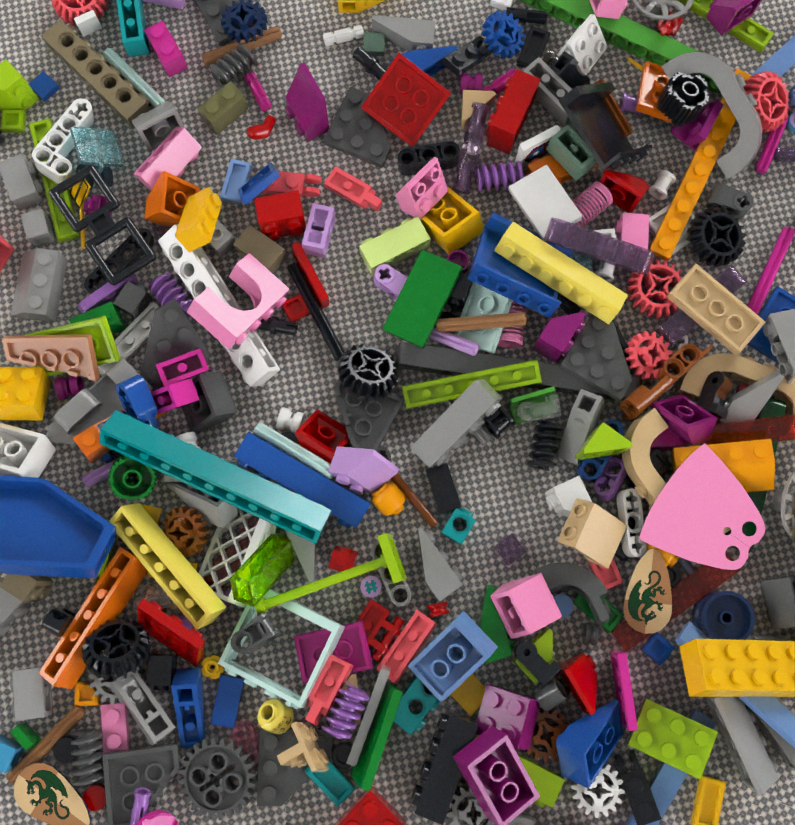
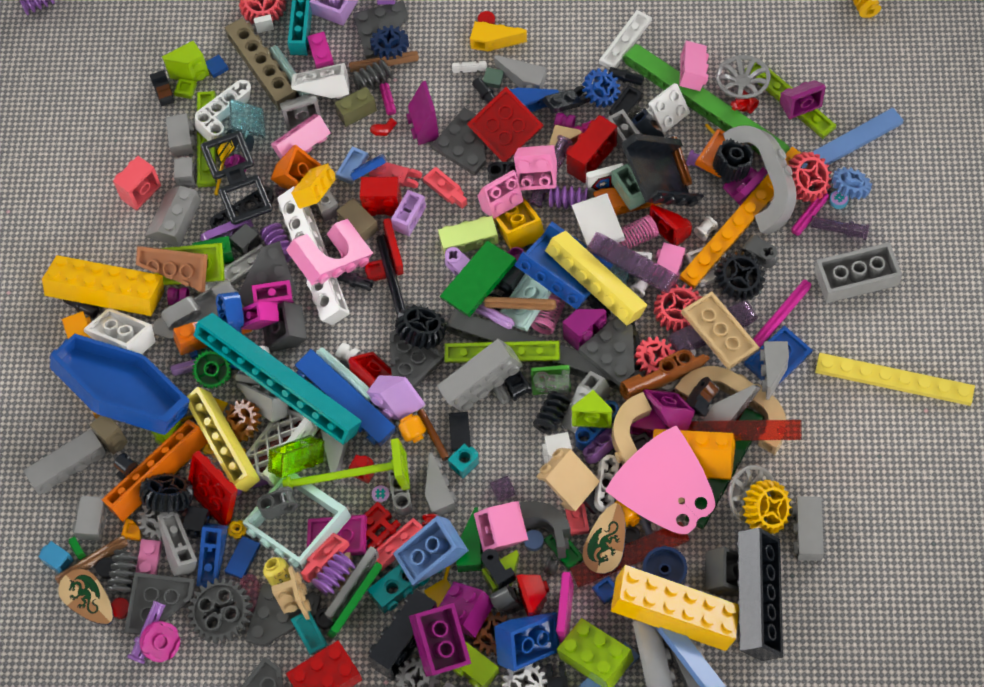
camera: 20 degrees right, 15 degrees down
(177, 84) = (325, 81): none -> white slope
(458, 147) = (536, 167): none -> bright pink slope

